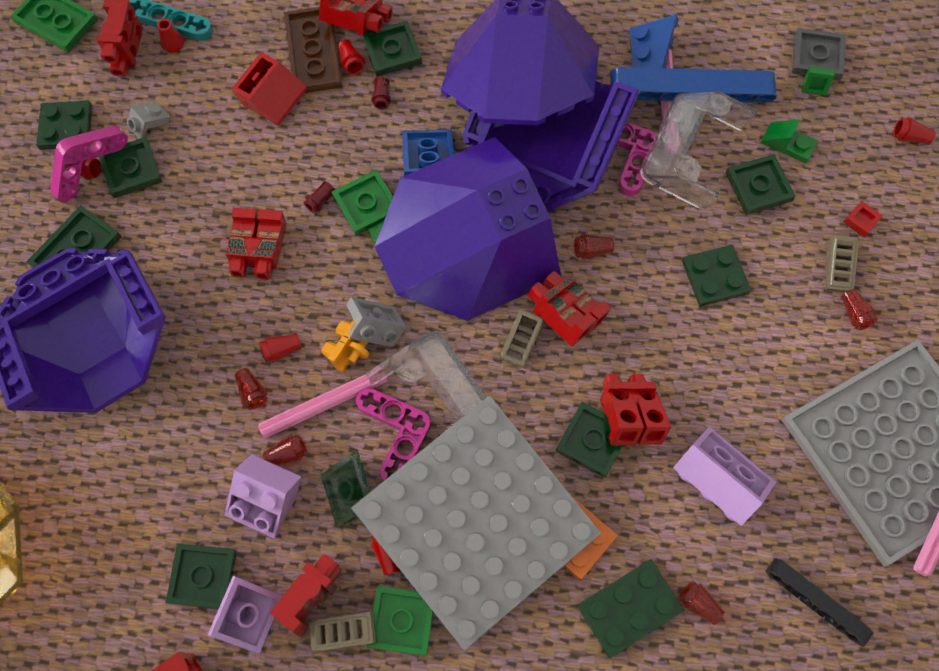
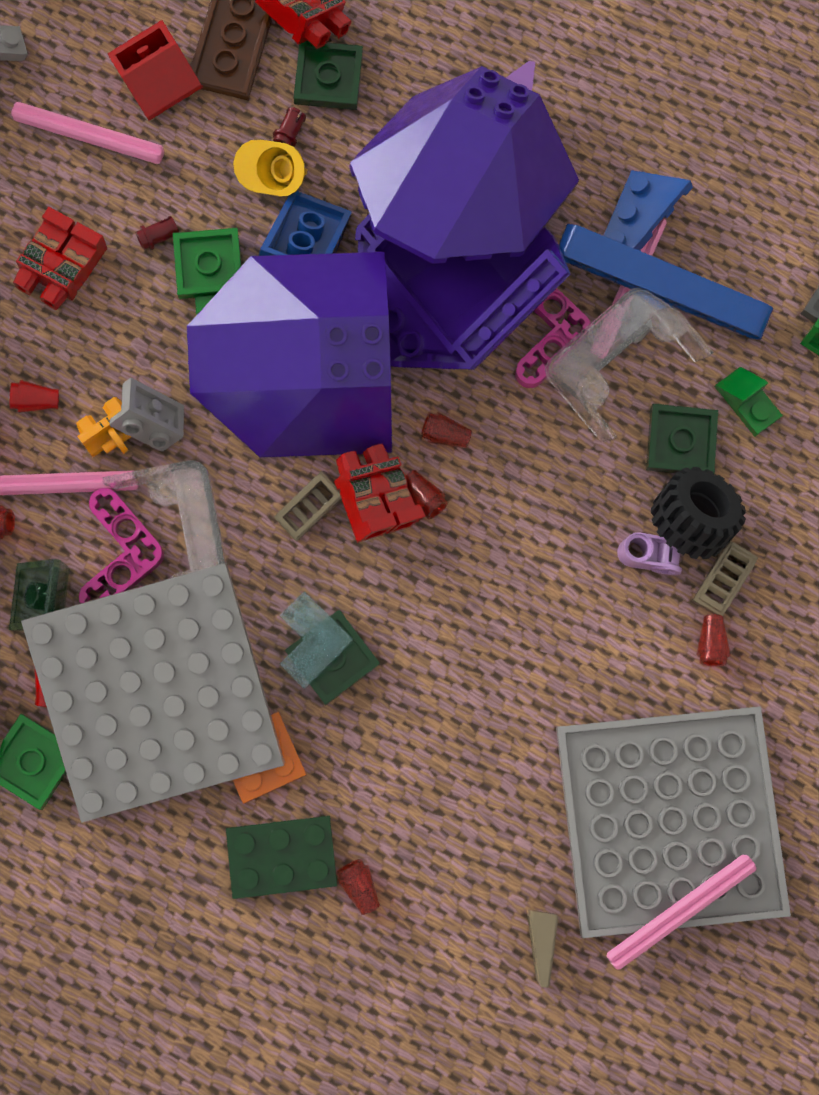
camera: 15 degrees right, 10 degrees up
(238, 150) = (87, 132): none -> bright pink axle
(351, 59) = (272, 68): red cone -> none
(381, 120) = (269, 167): none -> yellow piece
(581, 426) = (321, 640): none -> clear light blue plate
(603, 293) = (426, 494): none -> clear red cone
(634, 411) = (389, 646): red hips -> none
(716, 275) = (572, 528): dark green plate -> none
(725, 476) = (457, 761): lavender slope -> none
(785, 267) = (655, 554): none -> lavender piece
(802, 224) = (698, 513): none -> black tyre
(819, 602) = (486, 942): black beam -> none
(861, 583) = (542, 936): none -> dark tan slope
(862, 219) = (780, 535): red plate -> none

